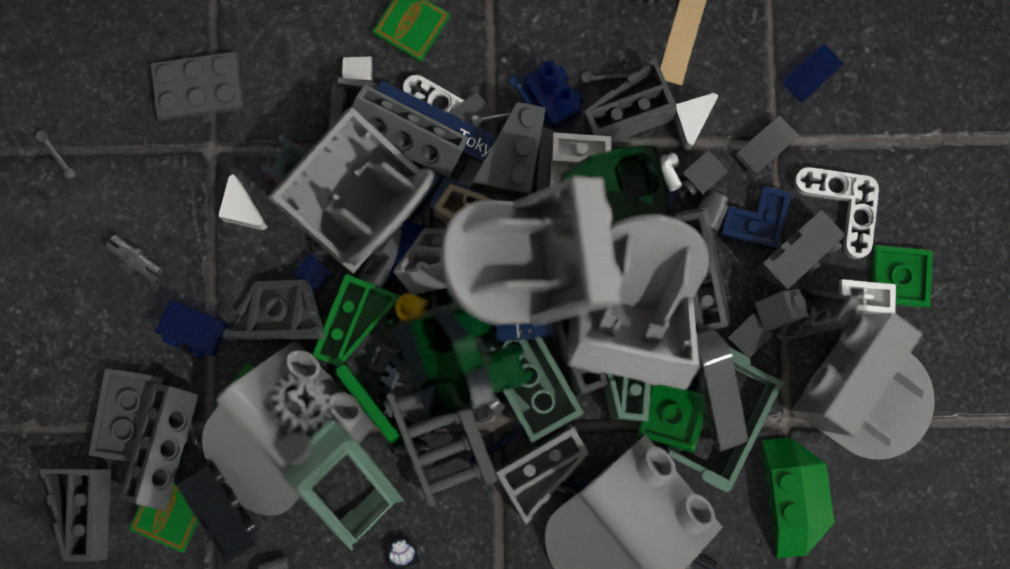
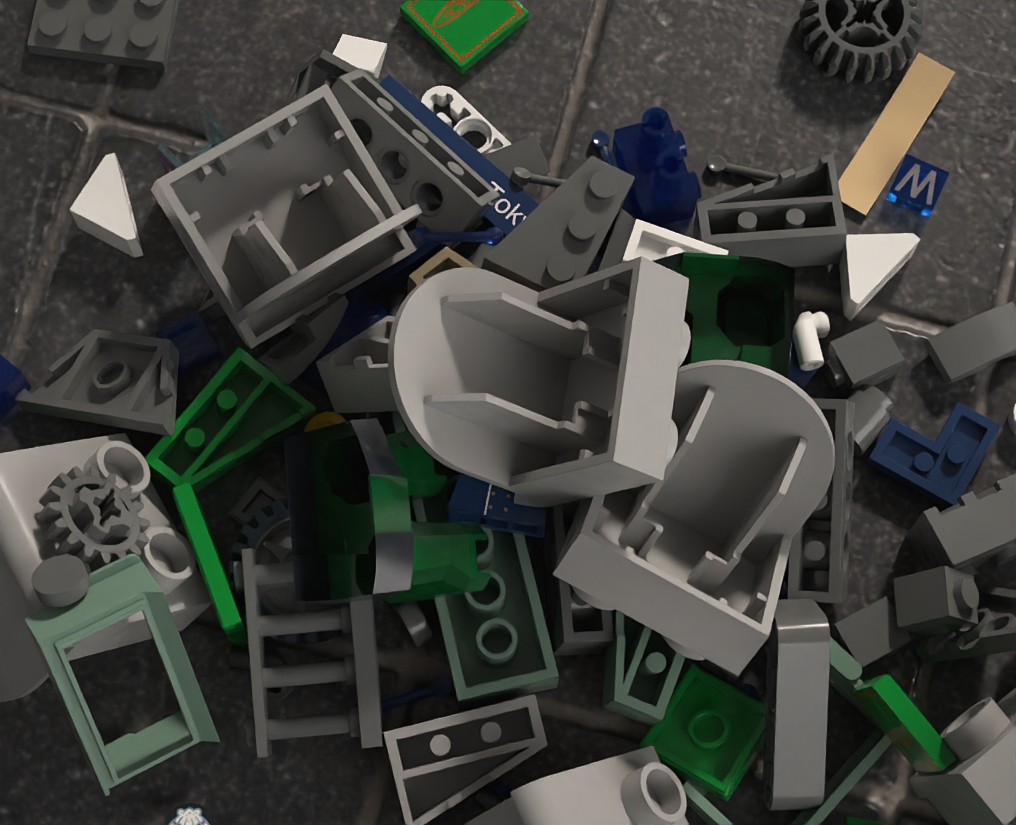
camera: 15 degrees right, 10 degrees down
(472, 167) = (421, 237): none -> clear blue hinge
(707, 58) = (917, 185): none -> clear blue tile
(783, 388) = (904, 724): none -> green tile

